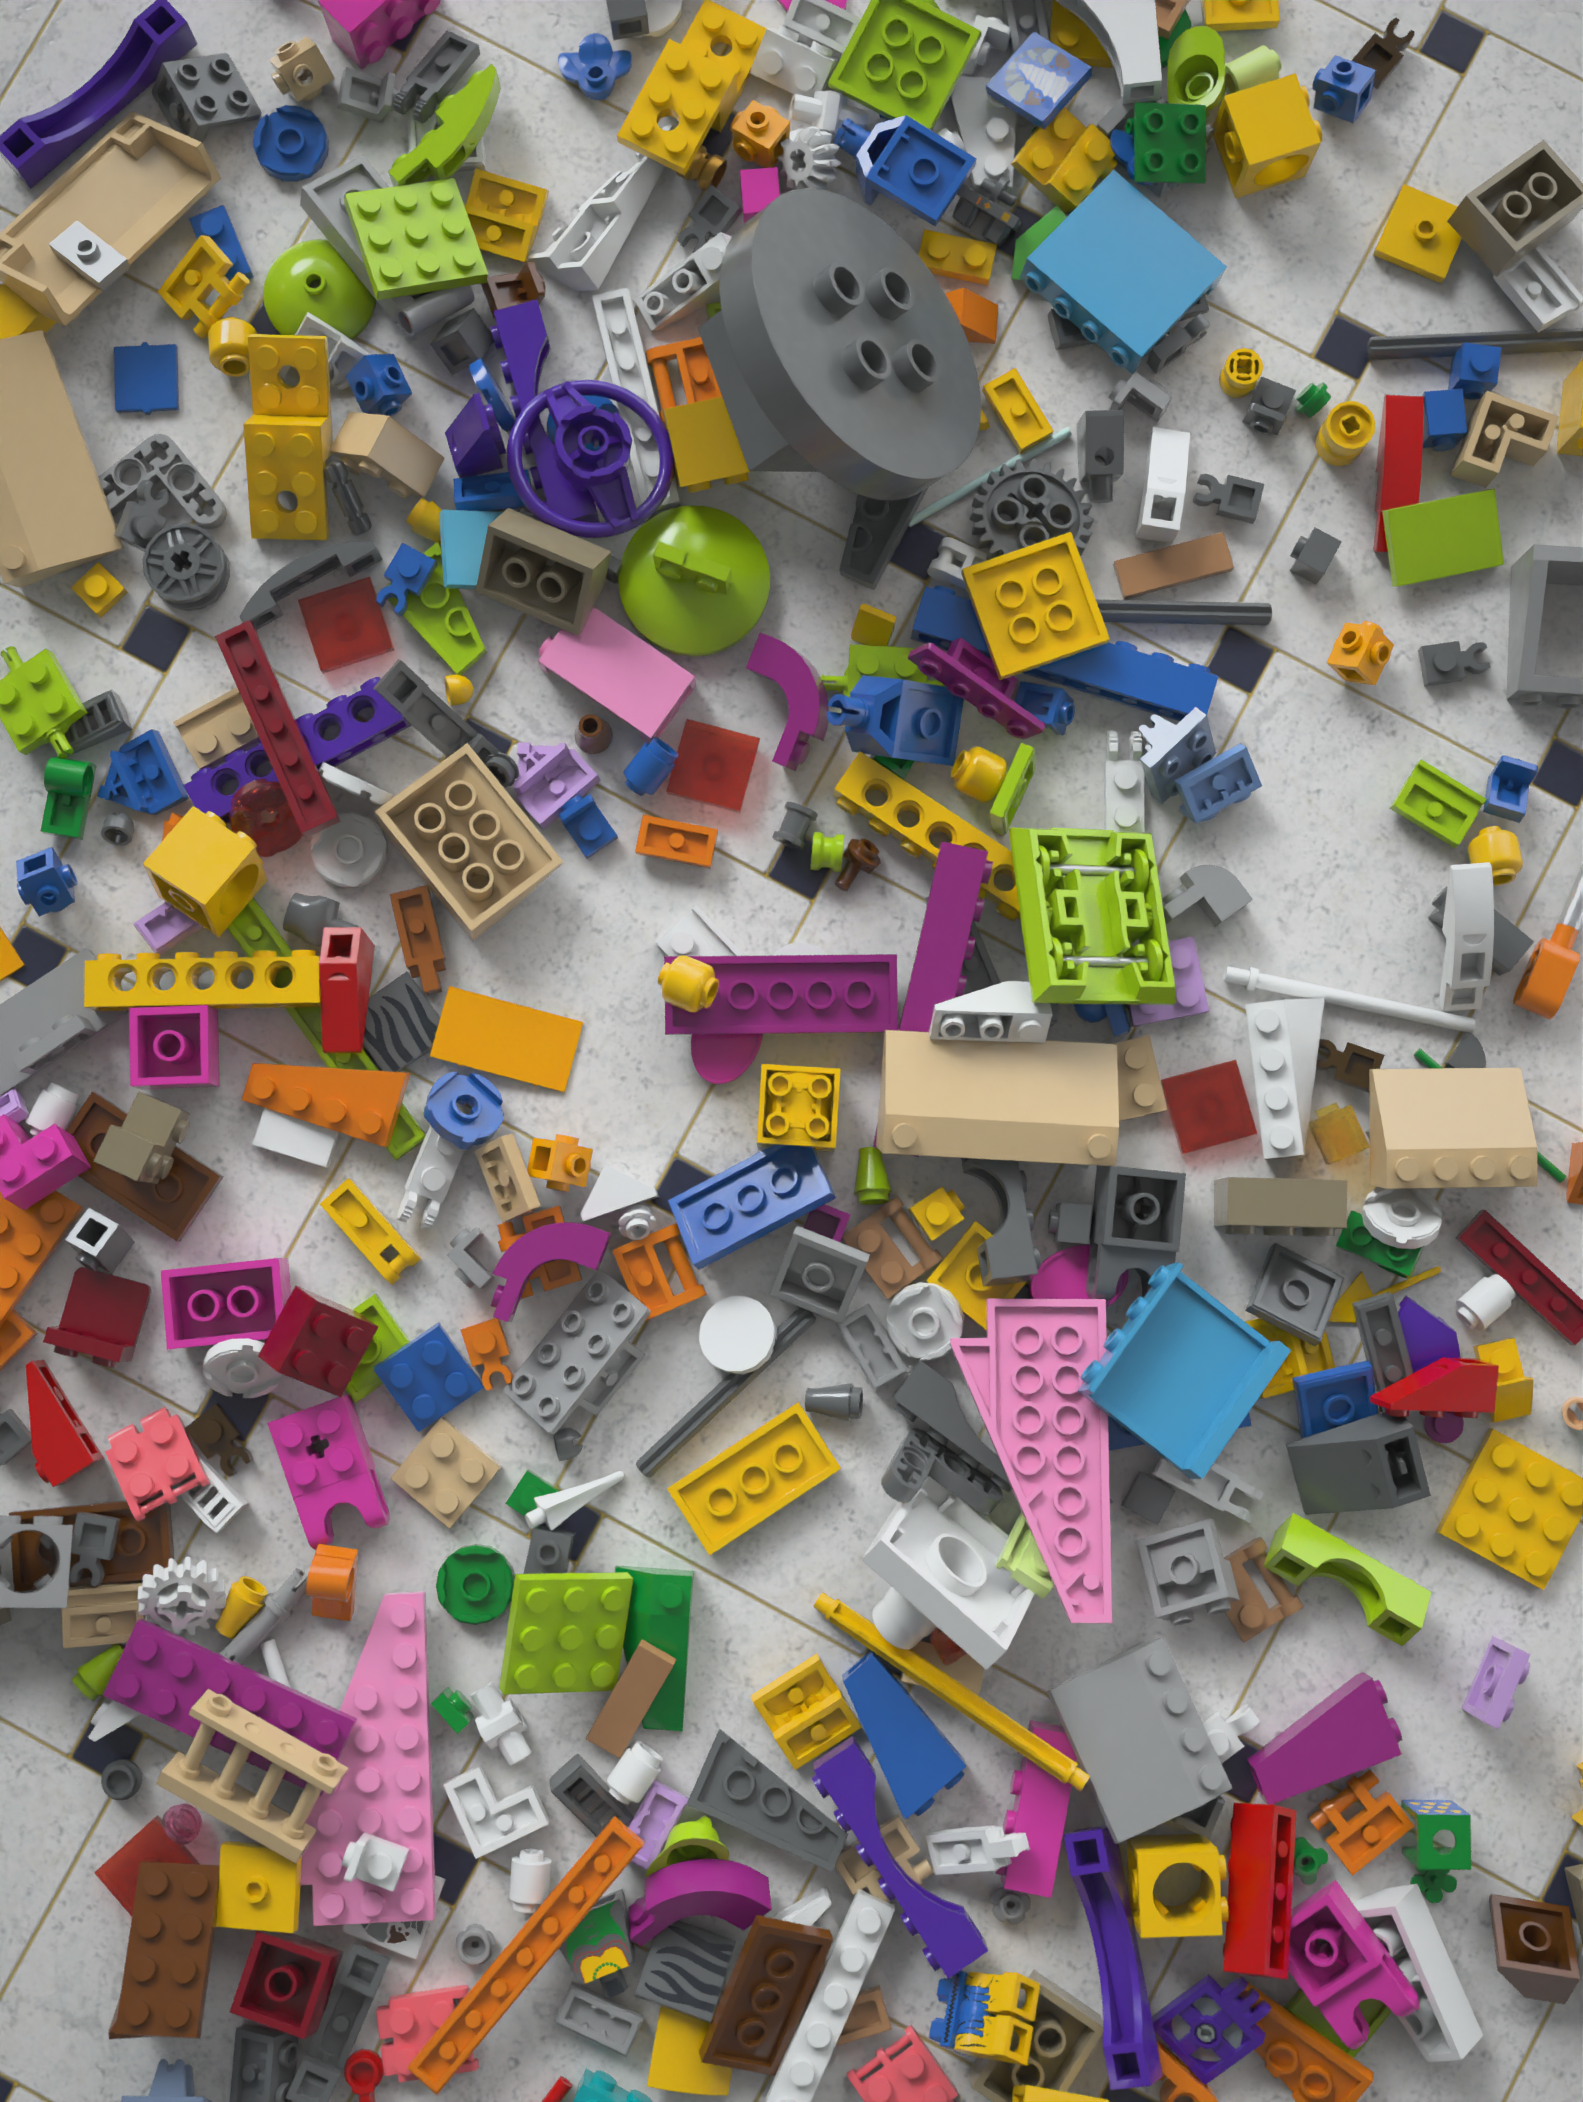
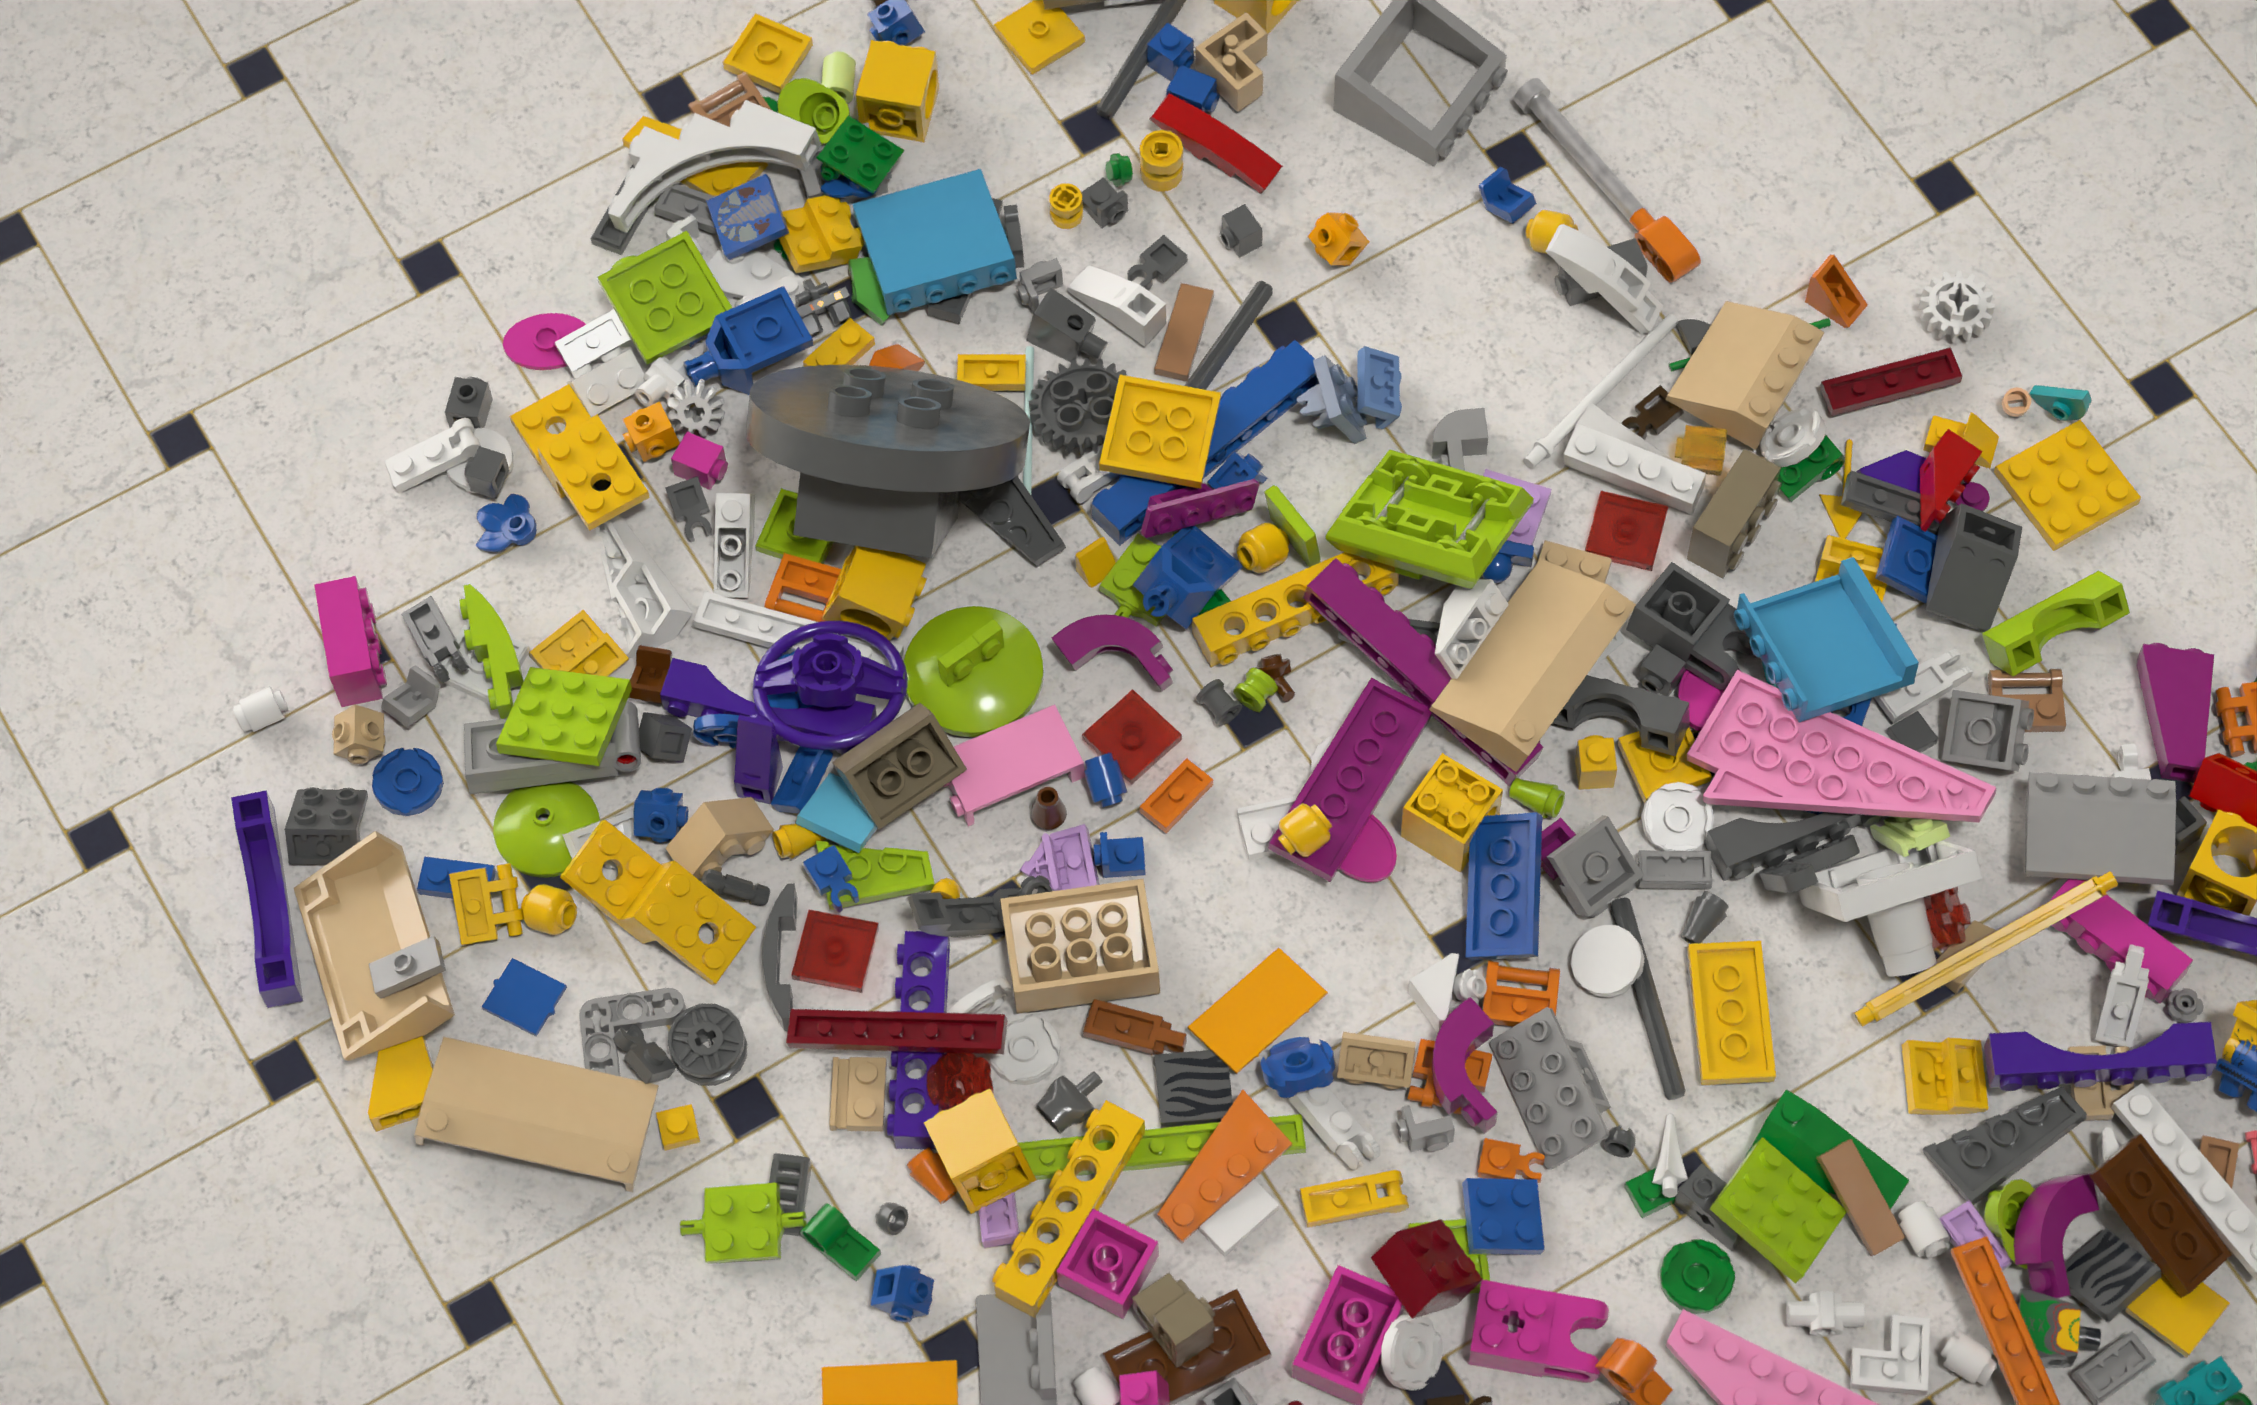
camera: 55 degrees left, 20 degrees down
(143, 776) = (859, 1175): blue slope -> none
(344, 987) = (1144, 1099): red slope -> none
(446, 1472) = (1590, 1249): tan plate -> none
(453, 1708) = (1793, 1342): green plate -> none
(560, 1162) = (1387, 1014): light orange brick -> none
(567, 1775) = (1903, 1286): dark grey slope -> none
(706, 169) = (654, 486): pearl gold wheel -> none
(886, 1262) = (1624, 818): medium nougat plate -> none
(903, 1737) = (2002, 1005): blue slope -> none
(1124, 786) = (1333, 454): white hinge -> none
(1295, 1294) = (1810, 544): dark grey tile -> none
(1437, 803) = (1486, 251): lime plate -> none
(1443, 537) = (1284, 138): lime tile -> none
(1446, 662) = (1382, 188): dark grey plate -> none
(1485, 1302) = (1893, 419): white brick -> none
(1496, 1682) = (2193, 560): lavender plate -> none

